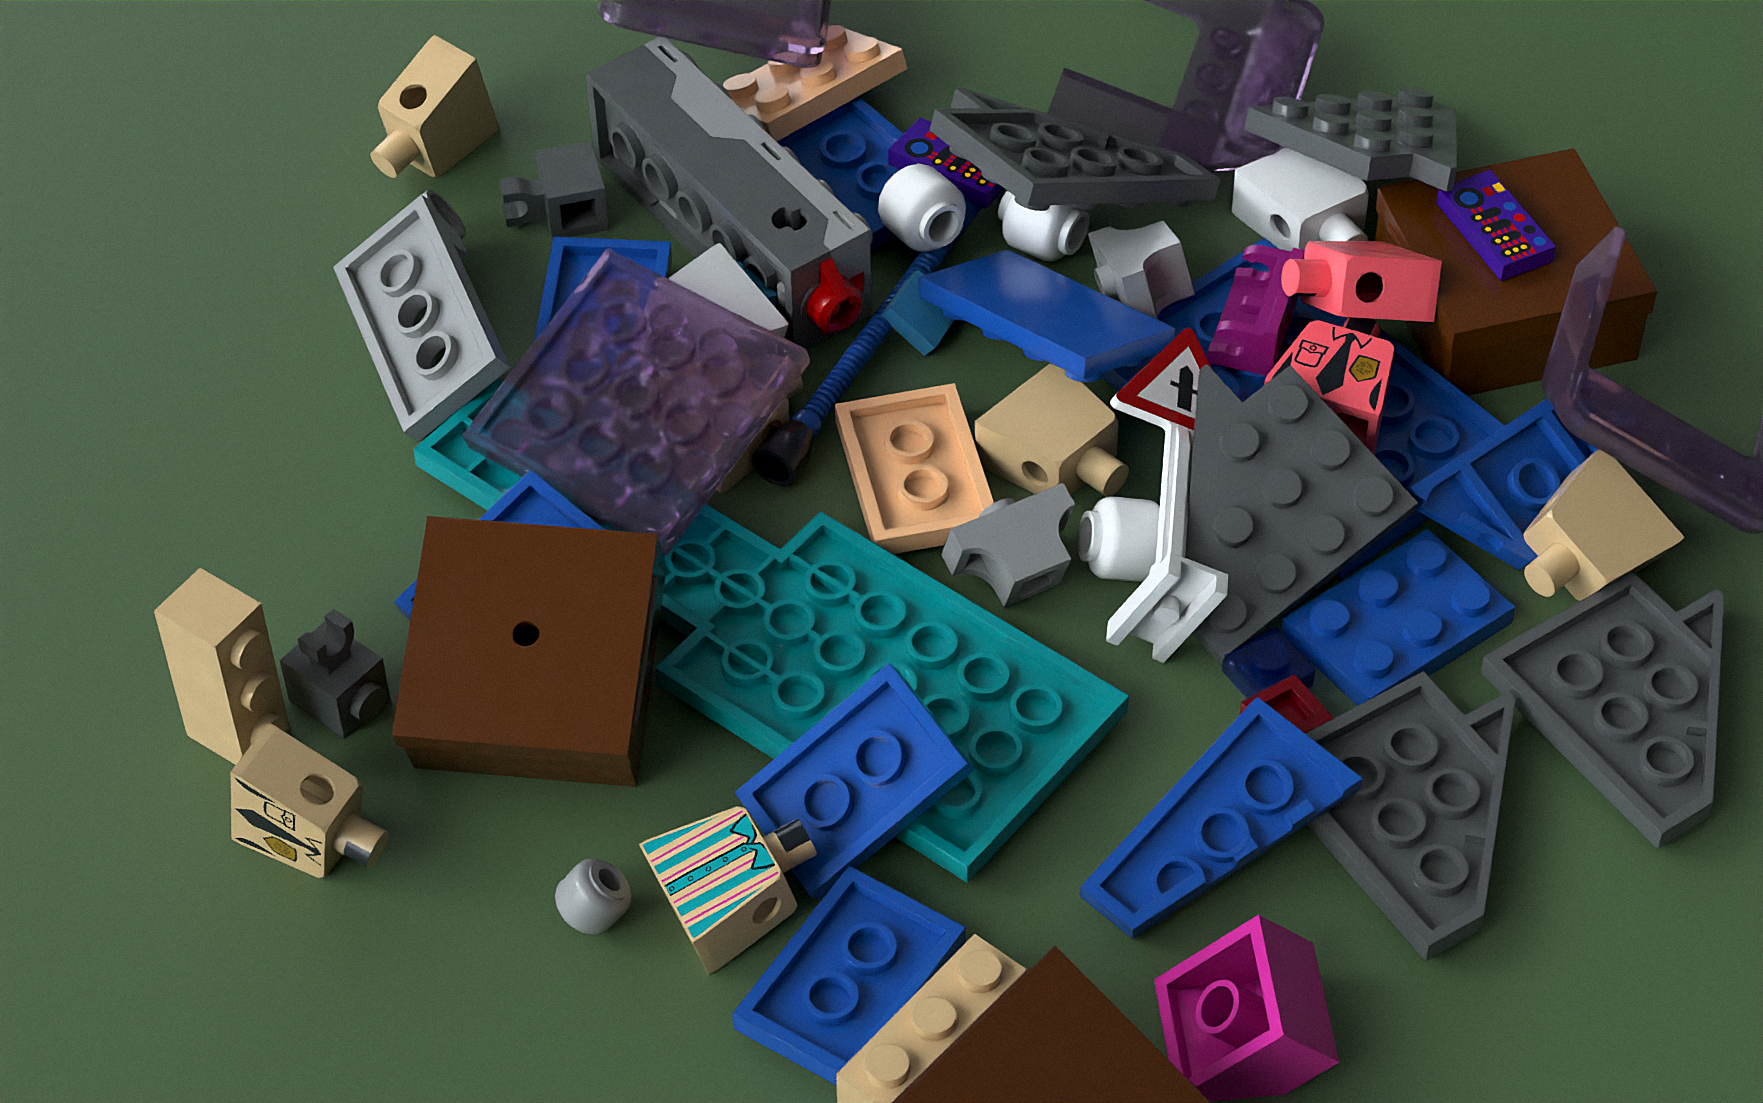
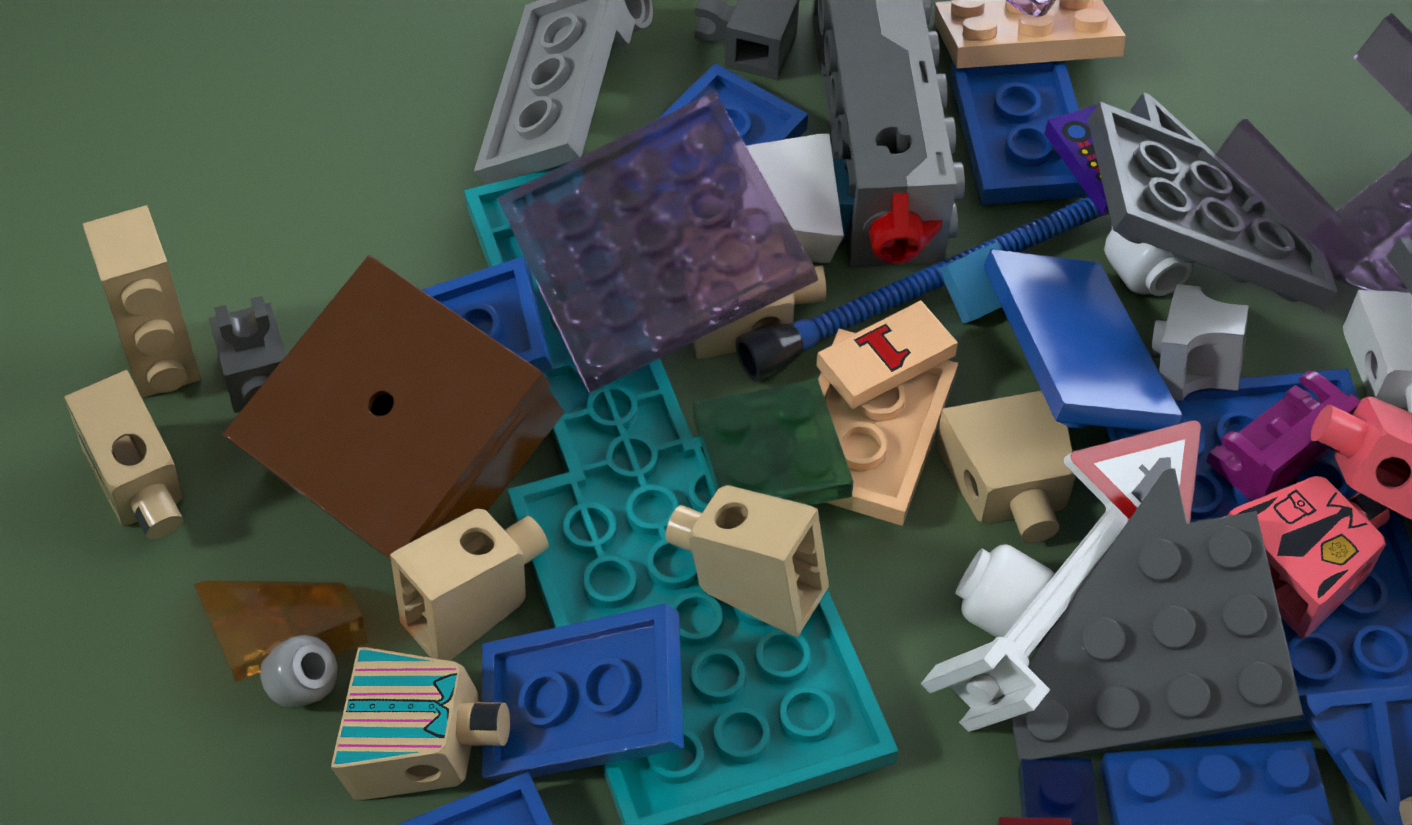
camera: 30 degrees right, 5 degrees up
(528, 874) = (259, 615): none -> clear orange slope
(686, 727) = (463, 579): none -> tan torso
(857, 523) = (775, 443): none -> clear green plate
(894, 402) = (886, 354): none -> light nougat tile
(916, 600) = (756, 554): none -> tan torso
(922, 208) = (1037, 187): white head -> none
(1014, 545) = (900, 544): light grey brick -> none

